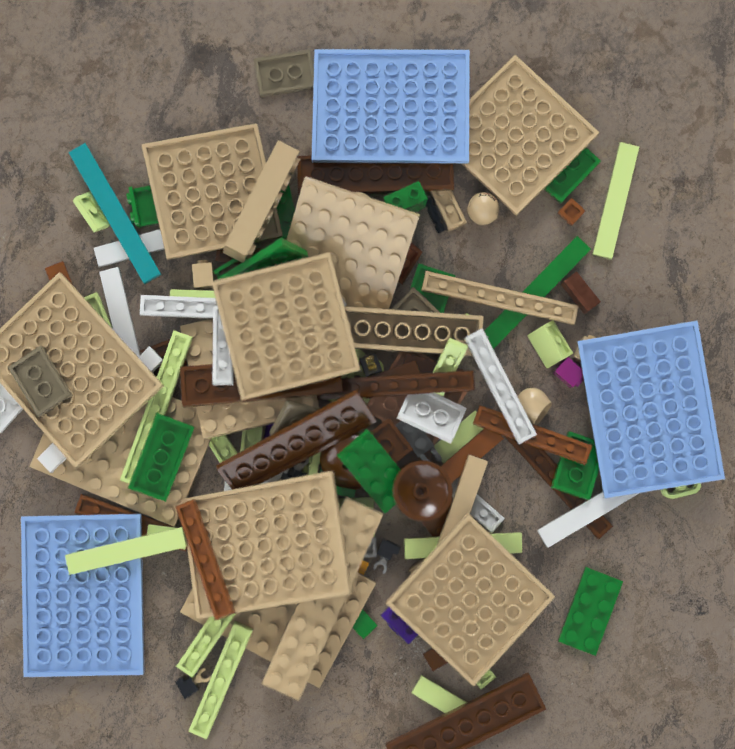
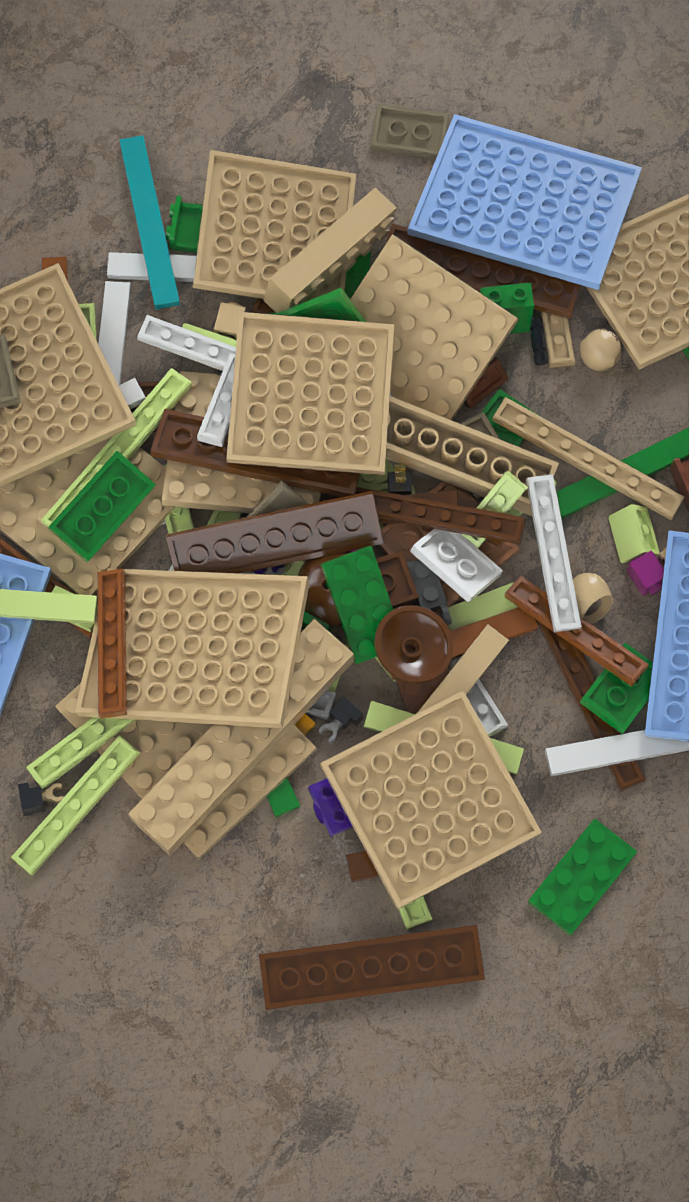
camera: 20 degrees right, 15 degrees down
(91, 211) = (122, 211): yellowish green plate -> none
(436, 695) = (345, 917): yellowish green tile -> none

